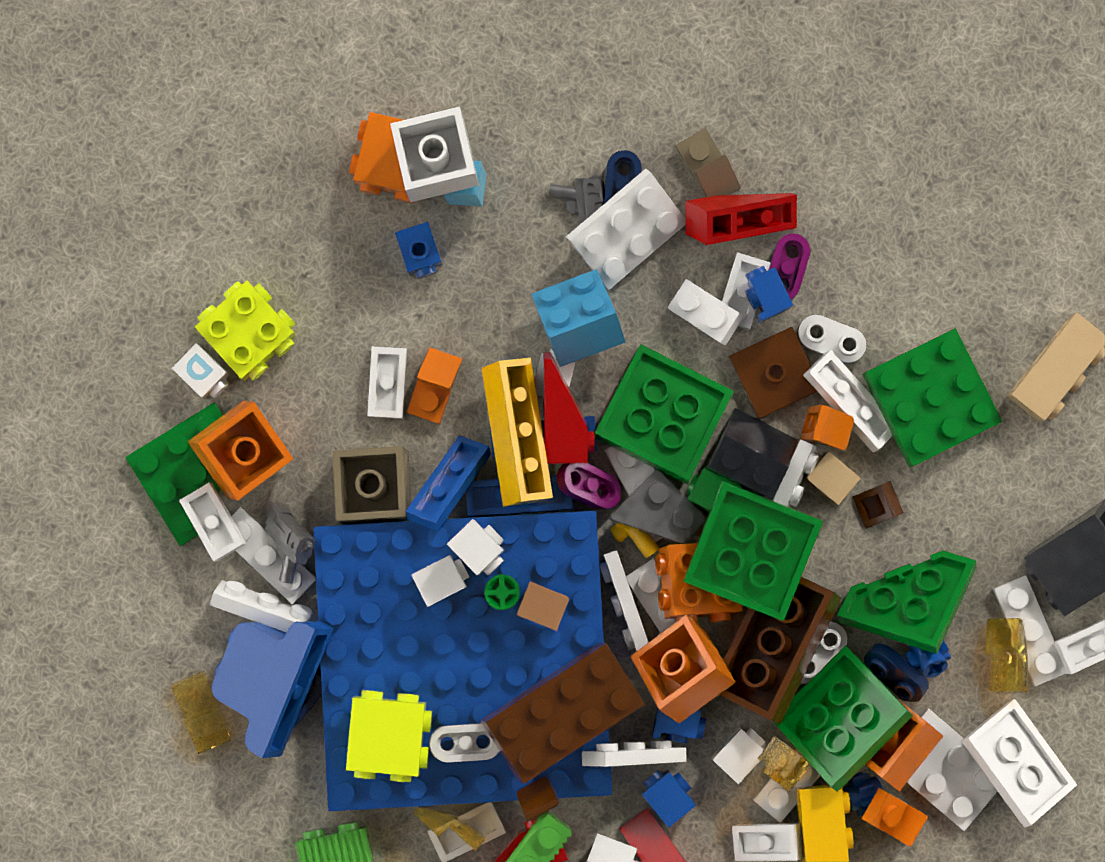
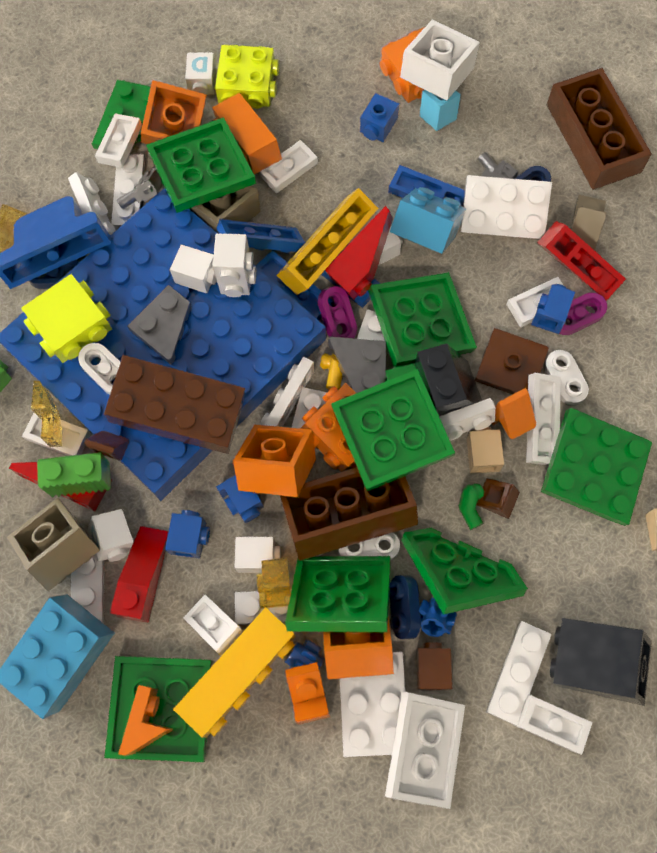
camera: 50 degrees right, 15 degrees down
(318, 394) = (250, 132): none -> orange brick
(329, 476) = (200, 164): none -> green plate
(434, 385) = (313, 191): orange slope -> none
(463, 653) = (162, 323): none -> flat silver wing
(499, 595) = (220, 303): green wheel -> none
(516, 287) = (407, 180): none -> blue plate
(543, 606) = (233, 335): medium nougat panel -> none
(630, 62) = (598, 128): none -> reddish brown brick
(633, 754) = (192, 481): white plate -> none
(705, 312) = (505, 289): white plate -> none
(861, 536) = (468, 502): none -> green arm
(964, 696) = (434, 667): none -> reddish brown brick
(1008, 655) = (492, 669): clear yellow slope -> none

